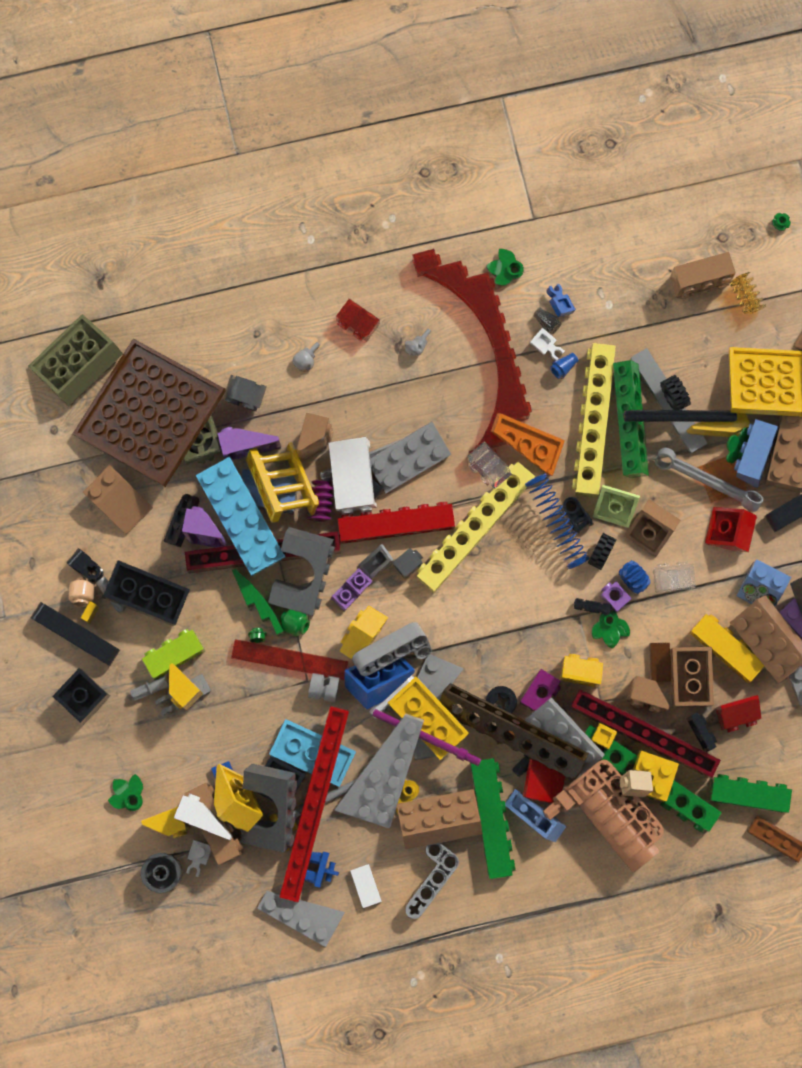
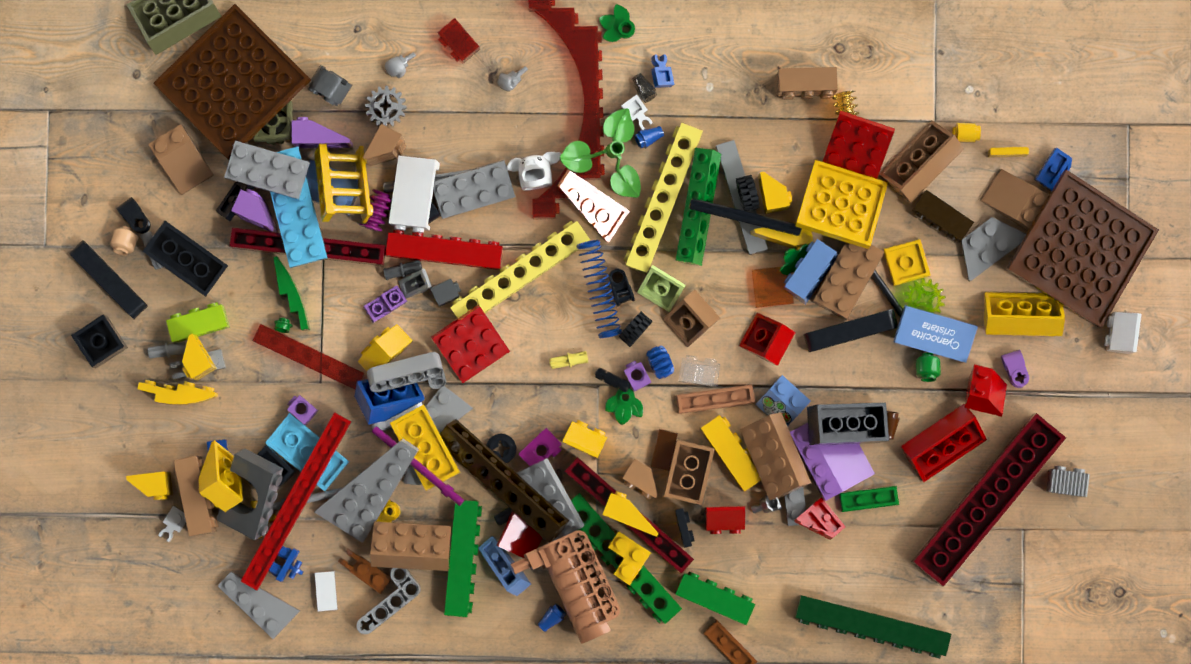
camera: 15 degrees right, 5 degrees up
(90, 612) = (127, 262): yellow tile -> none
(125, 791) = (121, 442): green plate -> none
(171, 878) = (126, 537): dark grey brick -> none
(178, 727) = (185, 393): none -> yellow slope
(198, 815) = (181, 485): white slope -> none
(205, 486) = (267, 170): none -> light grey plate
(294, 622) = (322, 322): green head -> none
(296, 400) = (394, 106): none -> light grey gear
(305, 714) = (310, 409): none -> medium lavender brick
(315, 550) = (358, 260): dark grey arch -> none
(323, 687) = (333, 392): light grey wheel -> none
(360, 552) = (402, 269): none -> dark grey axle
(401, 857) = (370, 575): none -> dark orange hinge
(445, 606) = (470, 343): none -> red plate
(463, 424) = (534, 170): none -> white piece
(489, 465) = (547, 218): clear brick -> none
(536, 363) = (621, 129): none -> bright green plant
(545, 598) = (569, 360): none -> light yellow axle
(595, 854) = (552, 617): none -> blue cone
(604, 736) = (588, 507): yellow tile -> none
(636, 783) = (605, 561): tan brick -> none
(644, 730) = (625, 512): none -> yellow slope
(696, 600) = (715, 399): none -> nougat tile
(700, 387) = (774, 194): none -> yellow slope
(750, 499) = (759, 286): light grey piece -> none
(768, 321) = (858, 144): none -> red plate
(775, 690) = (767, 505): none -> flat silver piece
(781, 226) = (896, 47): green plate -> none

